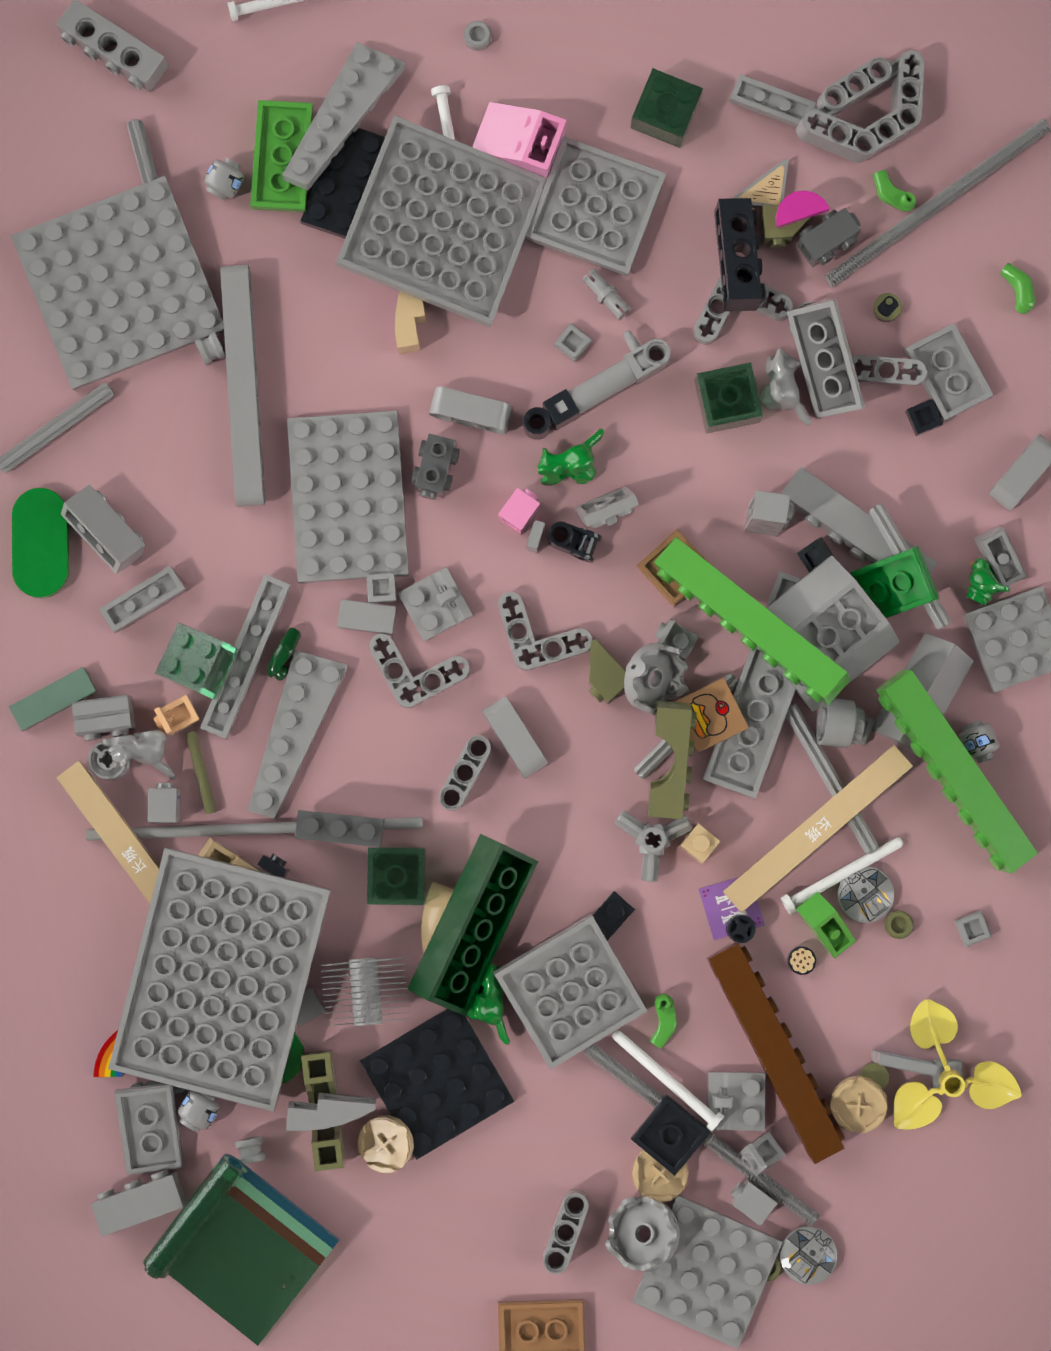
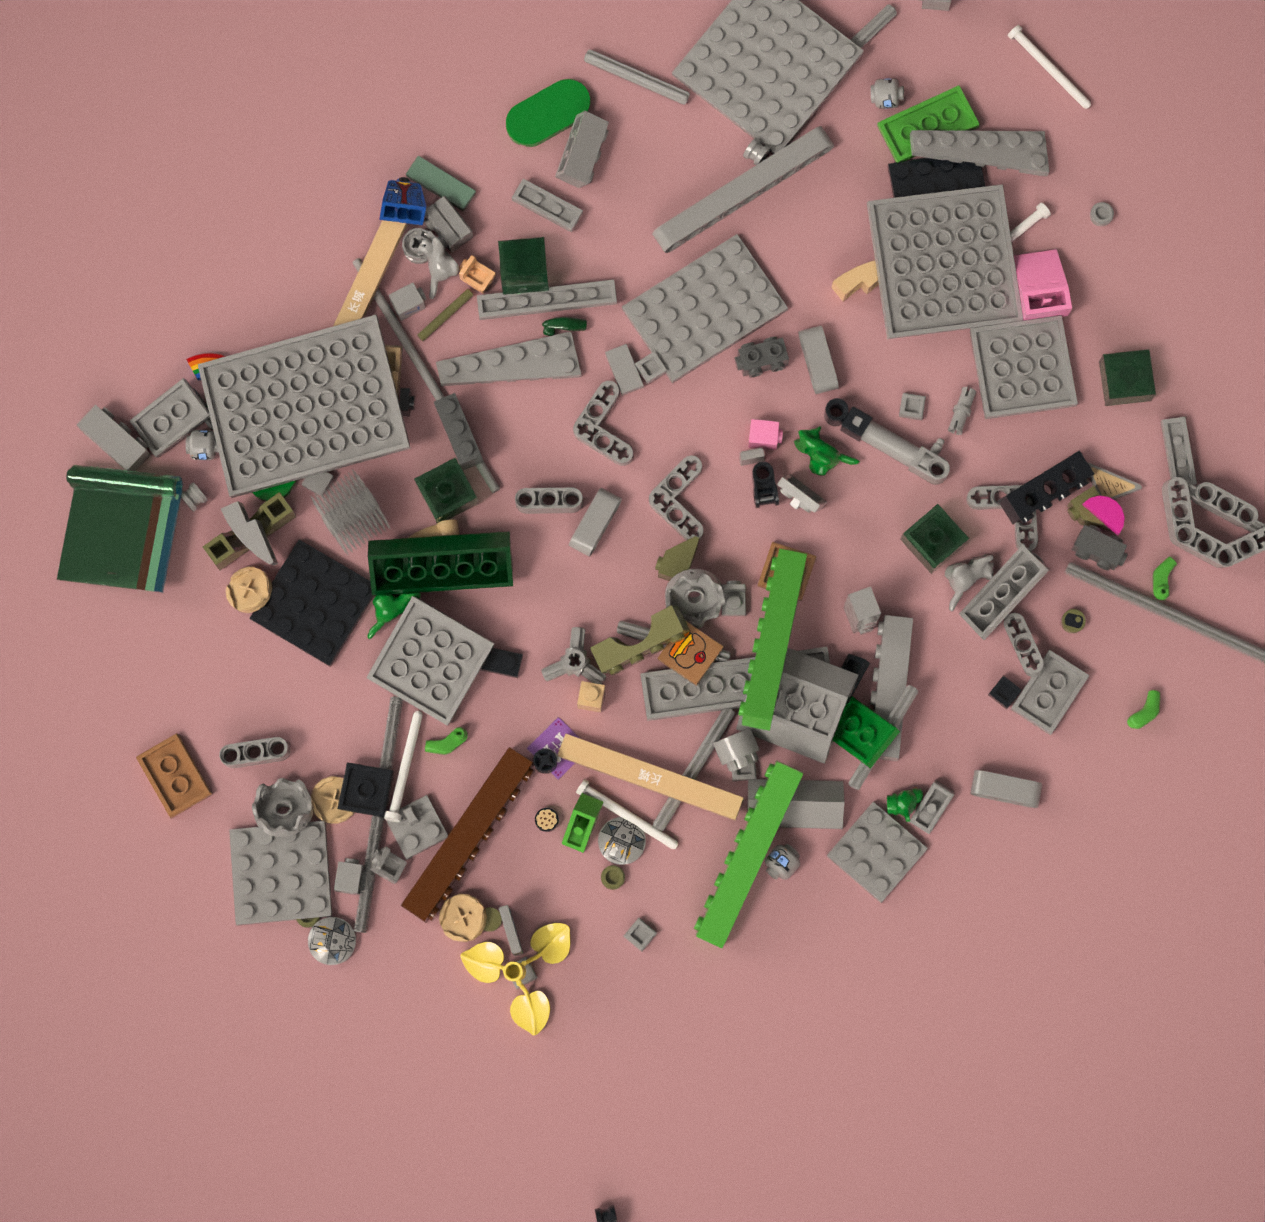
camera: 60 degrees right, 5 degrees down
(54, 750) = (403, 202): none -> blue torso
(435, 604) = (661, 413): light grey hinge -> none

